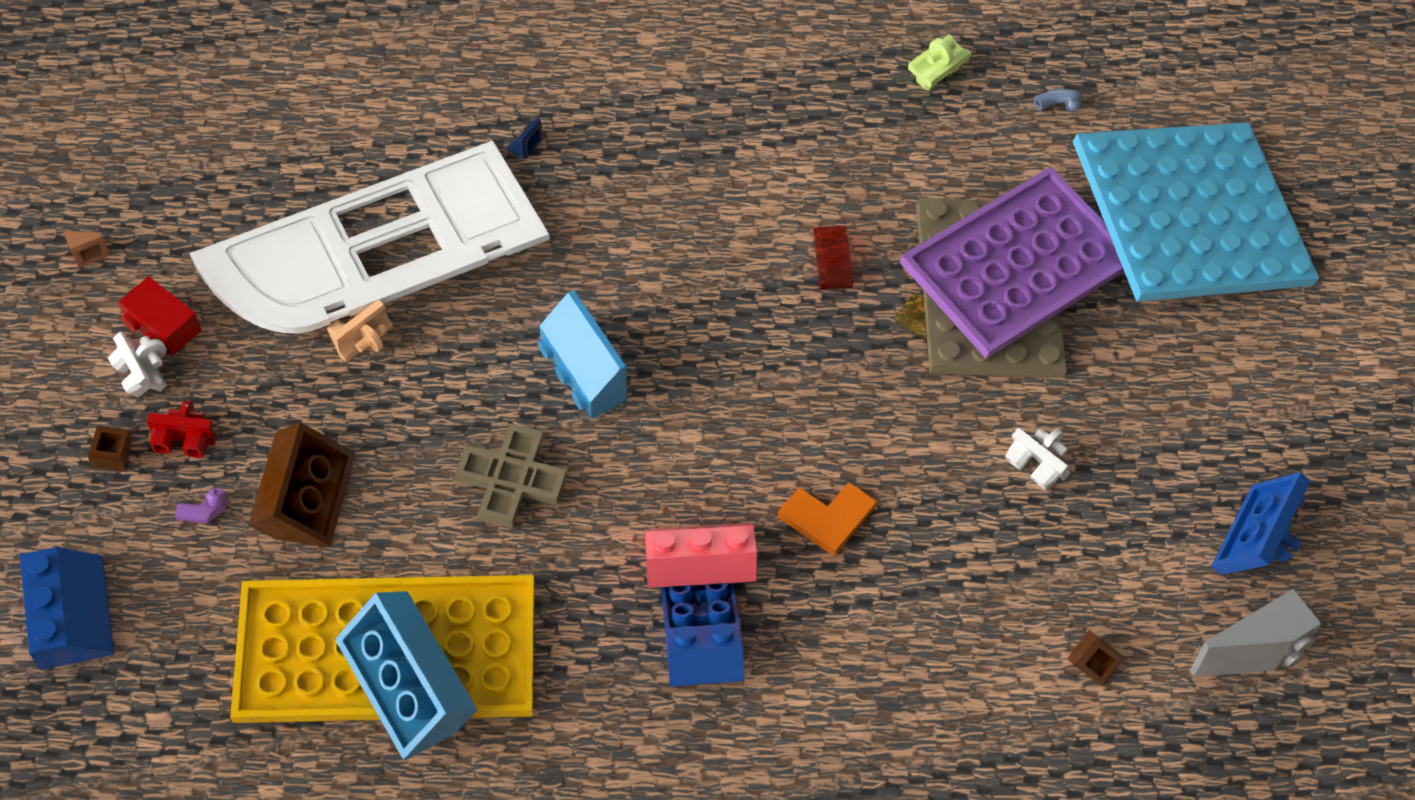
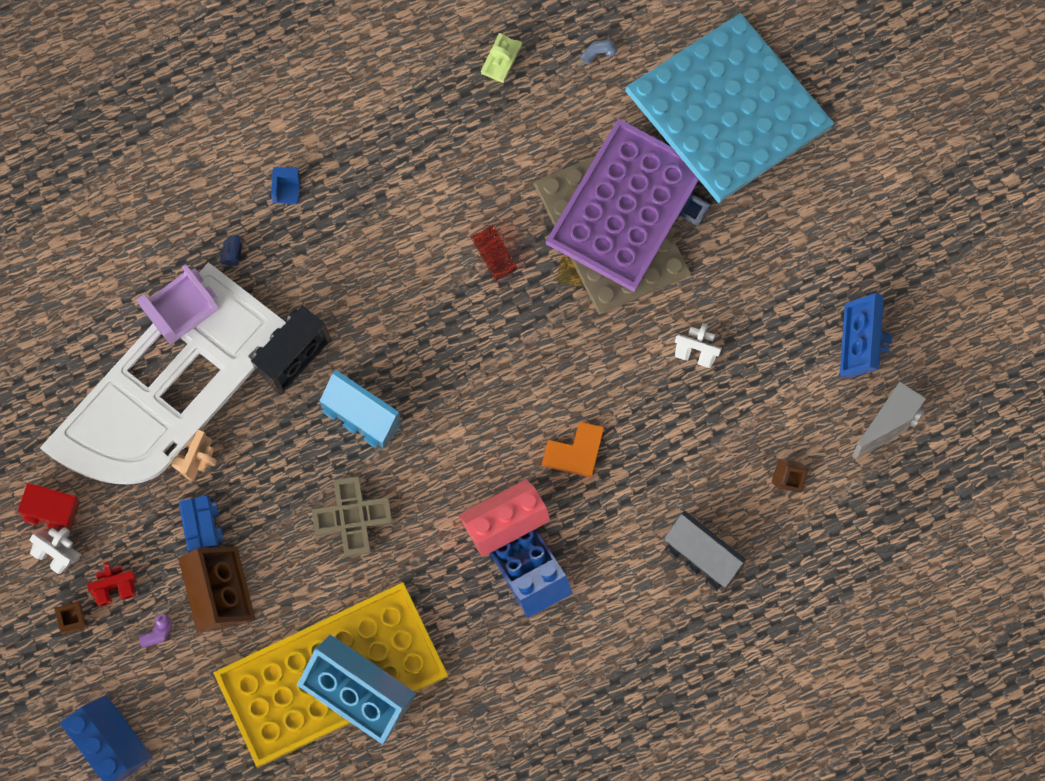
camera: 20 degrees left, 15 degrees up
(326, 402) = (200, 524): none -> blue brick
(433, 167) = (180, 305): none -> lavender panel
(536, 258) = (291, 349): none -> black slope
(622, 95) = (285, 185): none -> blue panel
(940, 700) = (703, 552): none -> slope
(1103, 305) = (696, 208): none -> dark blue slope

